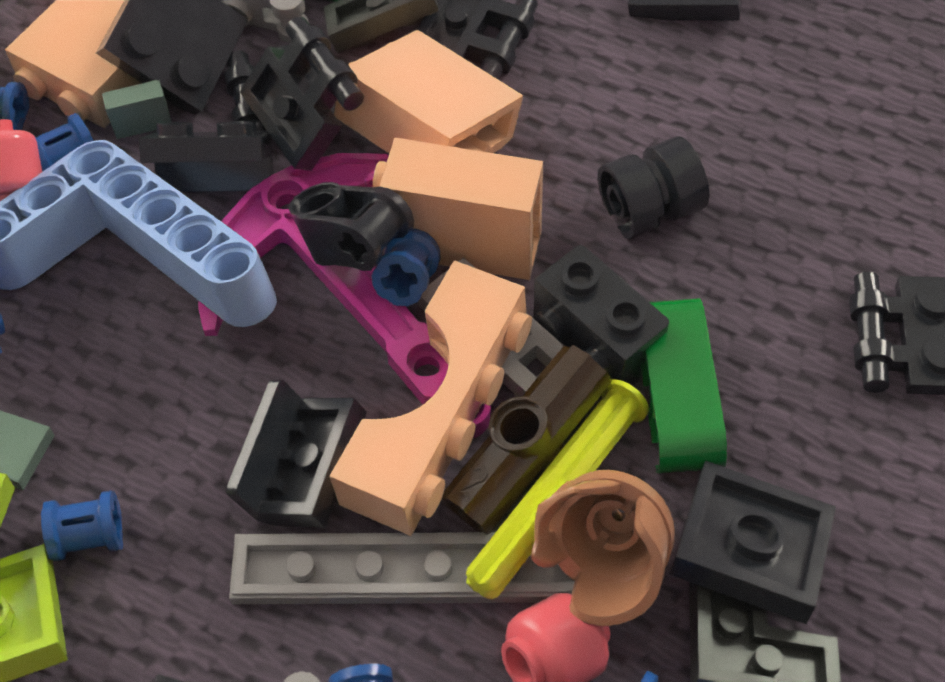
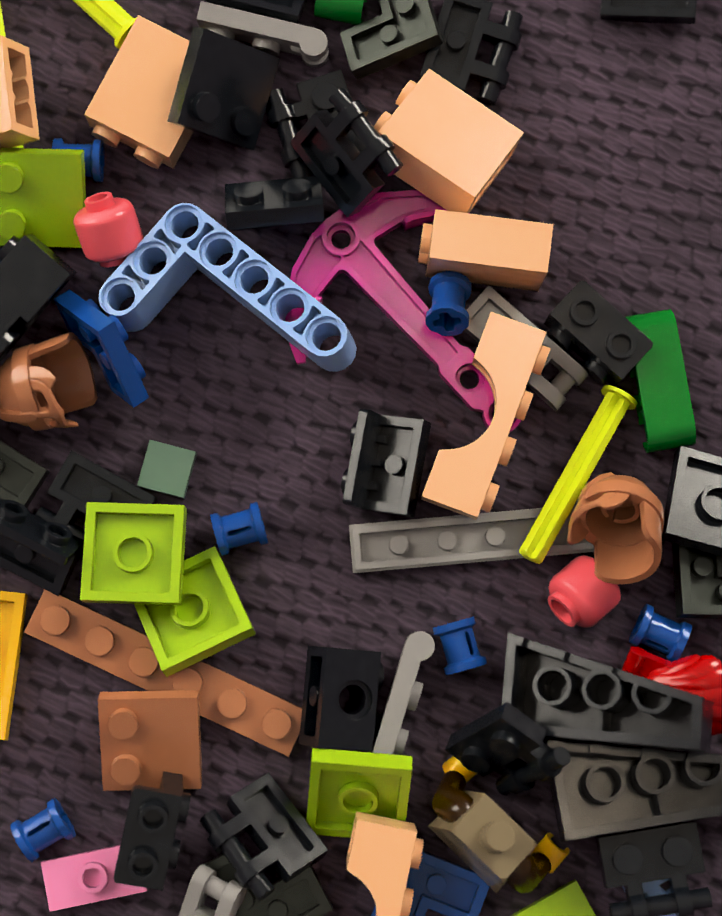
camera: 10 degrees left, 25 degrees up
(62, 140) = (153, 185): blue bush -> none
(136, 108) = (203, 157): sand green tile -> none
(350, 223) = (405, 281): black piece -> none
(504, 468) = (569, 411): dark brown piece -> none
(662, 183) = (639, 205): black wheel -> none

